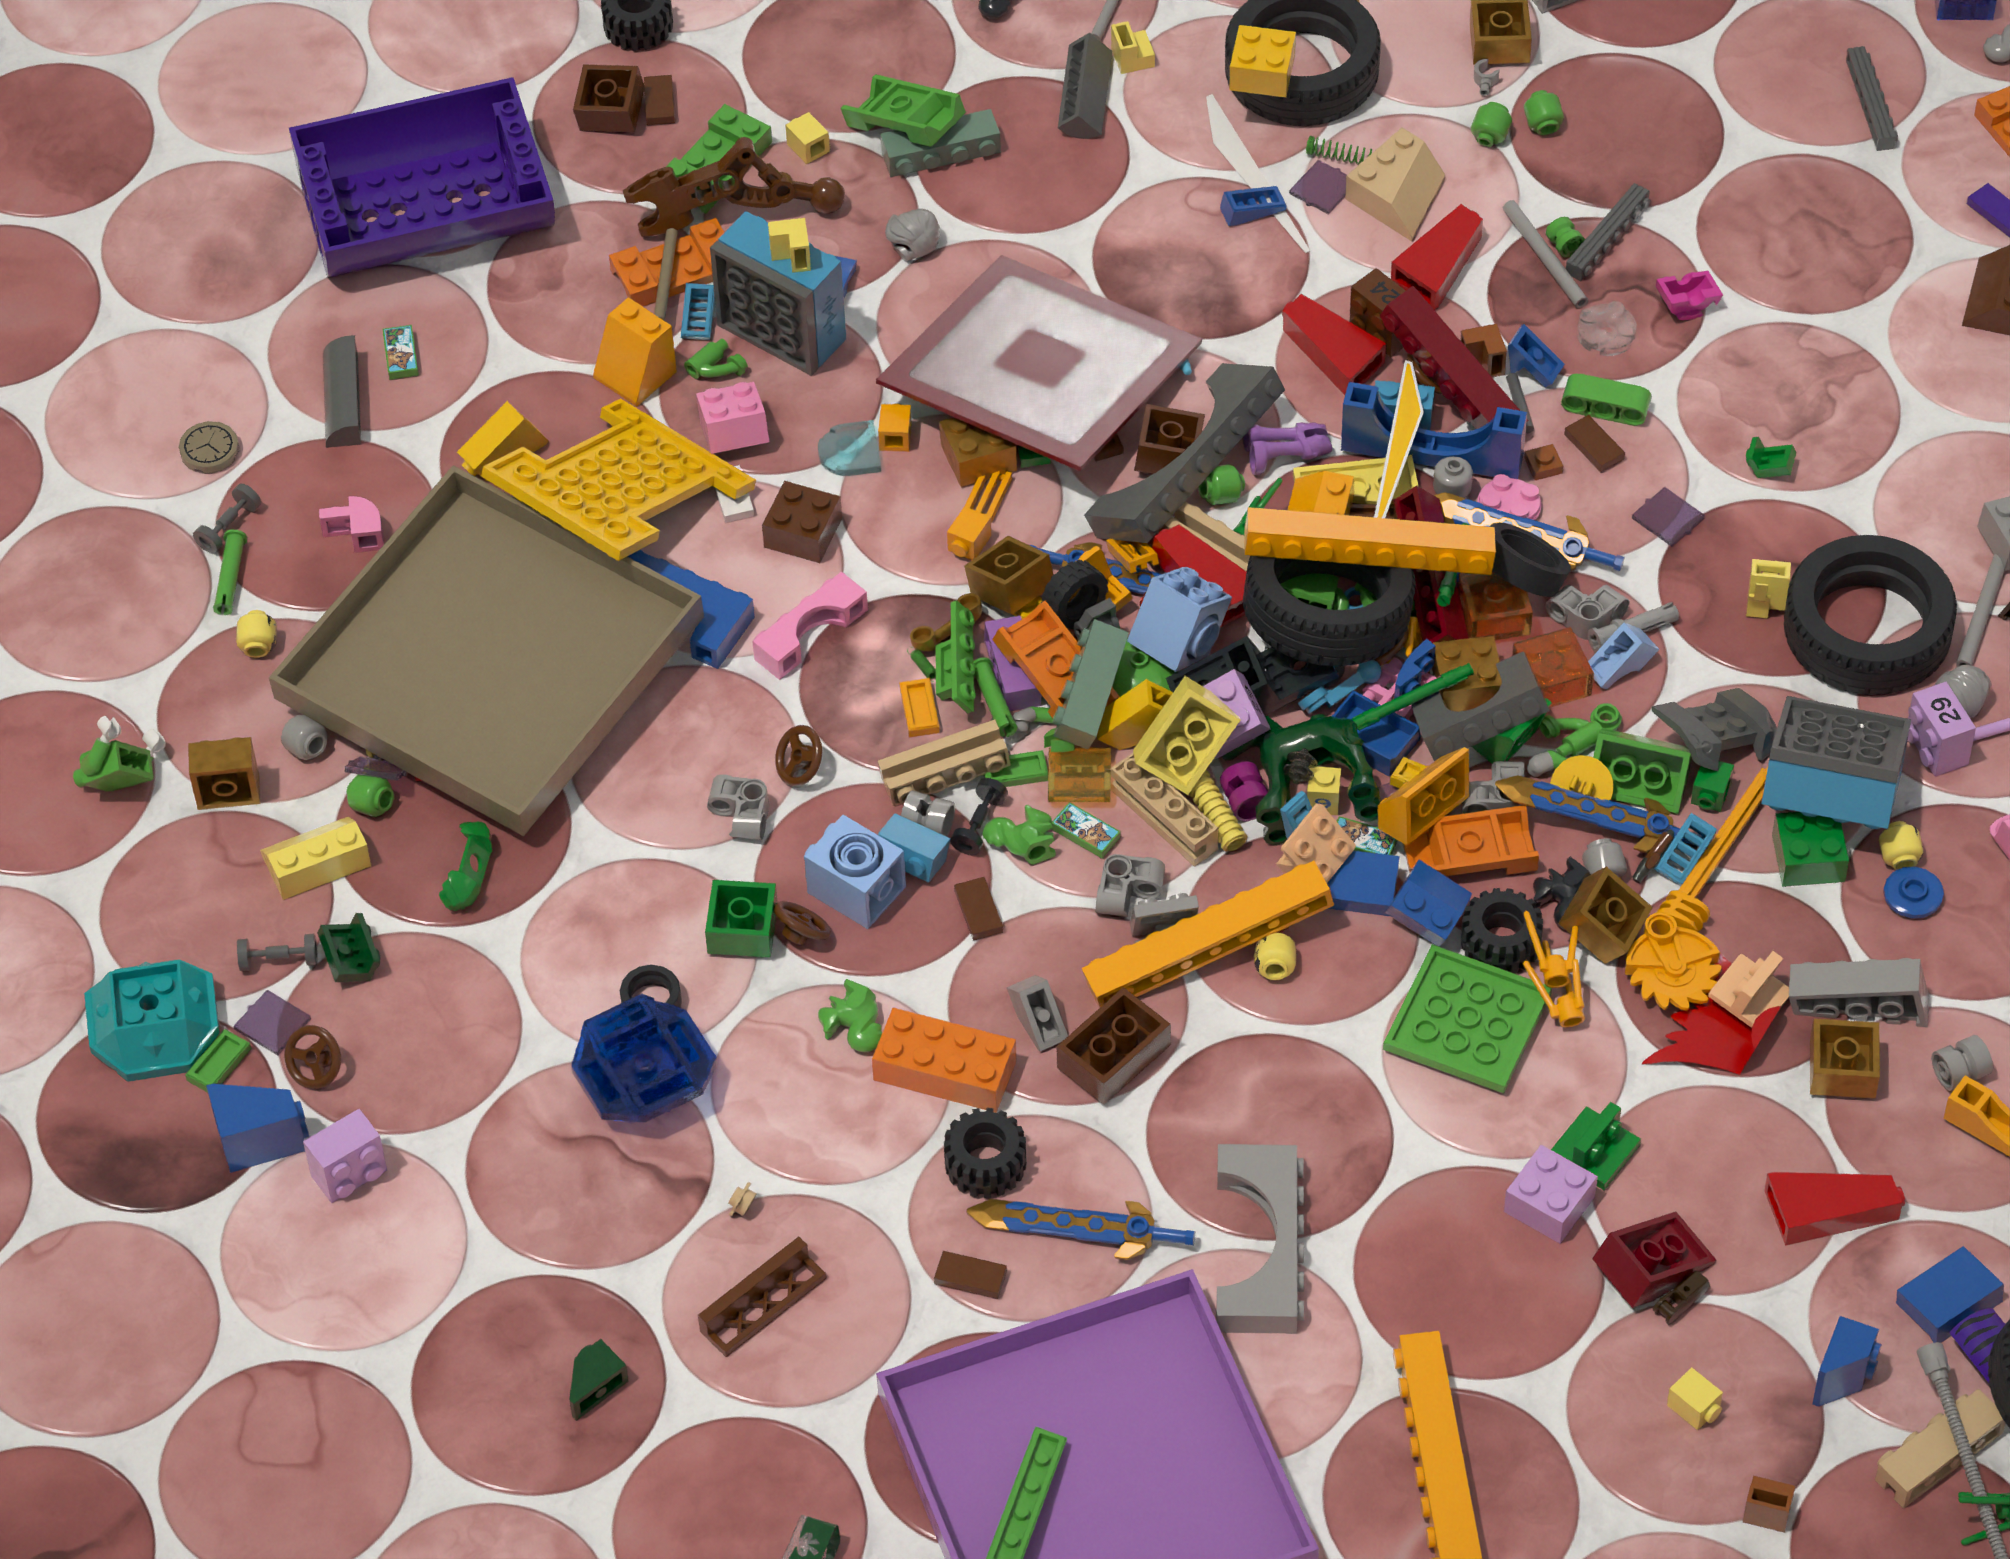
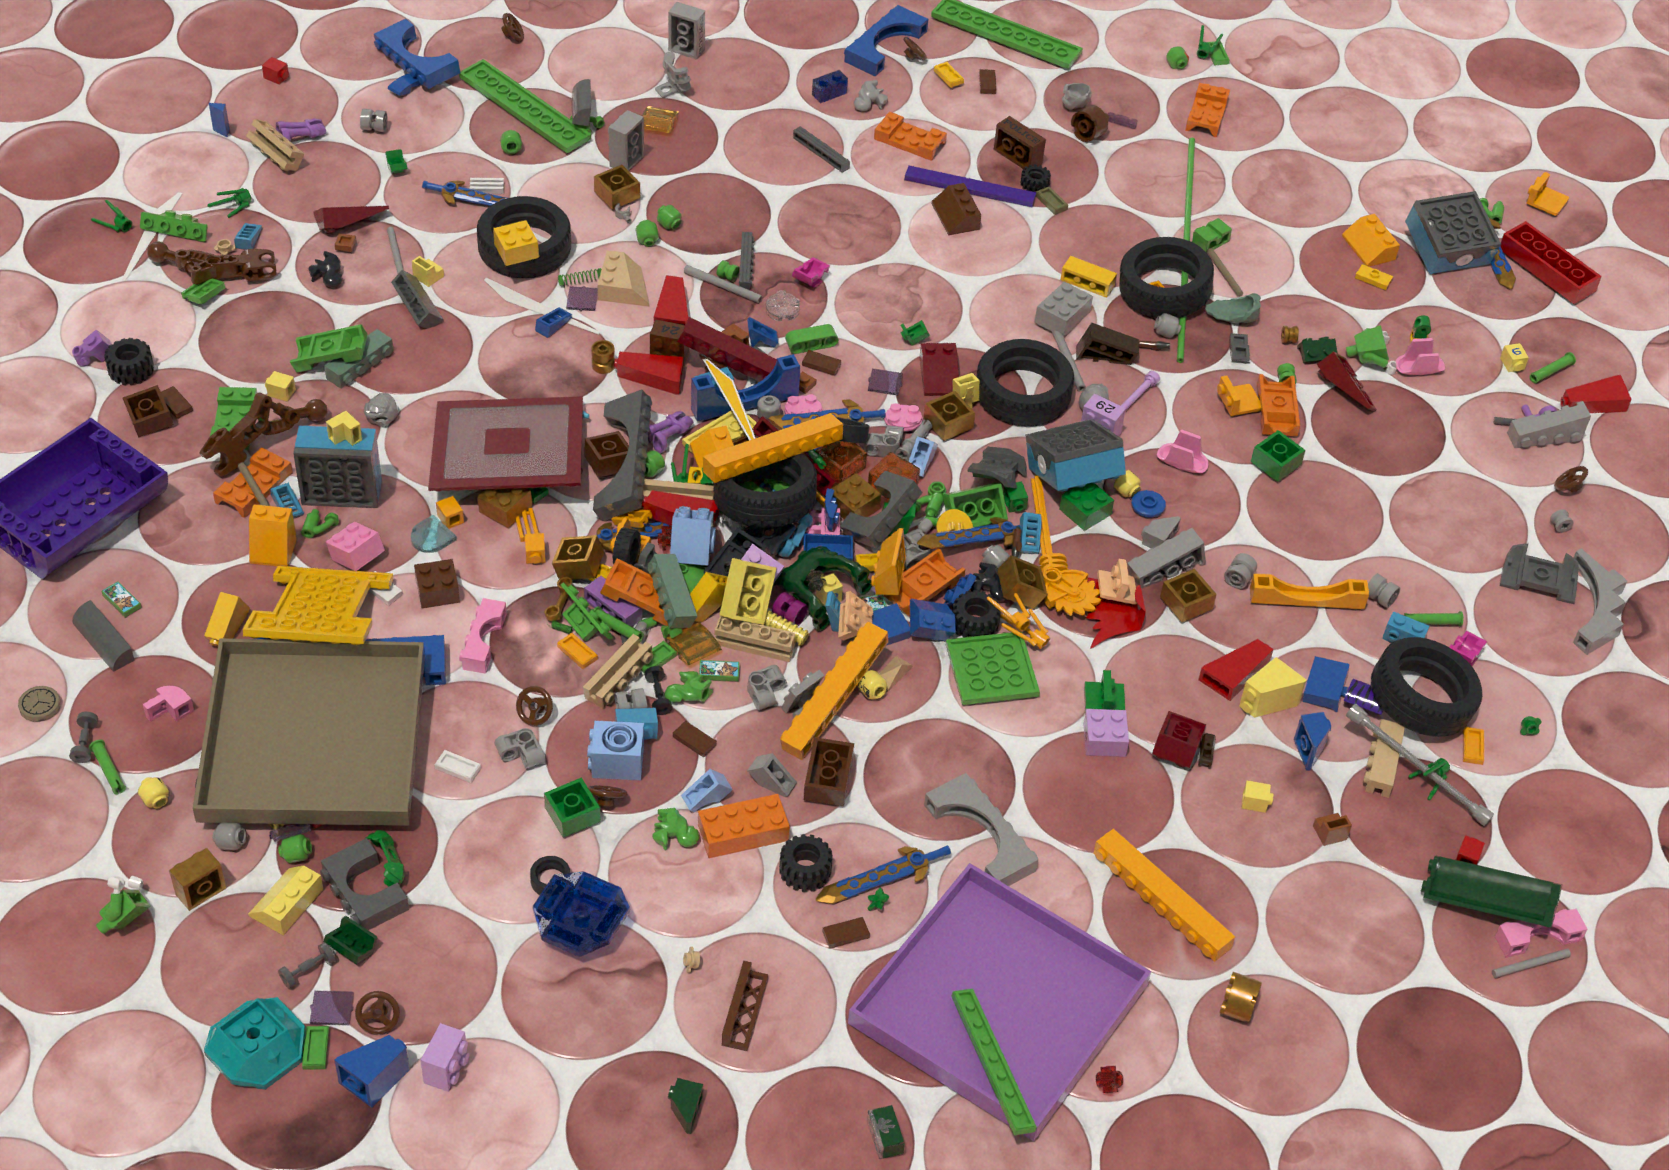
camera: 40 degrees left, 5 degrees down
(402, 852) = (364, 909): none -> dark grey arch
(648, 789) = (457, 766): none -> white tile
(936, 986) = (707, 789): none -> light blue arch
(1045, 1253) = (878, 899): none -> green plant
(1274, 290) = (603, 356): none -> pearl gold wheel
(1325, 954) = (895, 671): none -> tan slope
(1445, 680) = (853, 504): green piece -> none
(1521, 878) = (963, 585): none -> blue slope
(1647, 583) = (903, 416): none -> bright pink piece
(1711, 613) = (949, 415): none -> pearl gold brick
(1762, 529) = (938, 367): none -> dark red slope
(1844, 1259) = (1272, 689): none -> light yellow slope
(1891, 941) = (1160, 531): none -> light grey slope

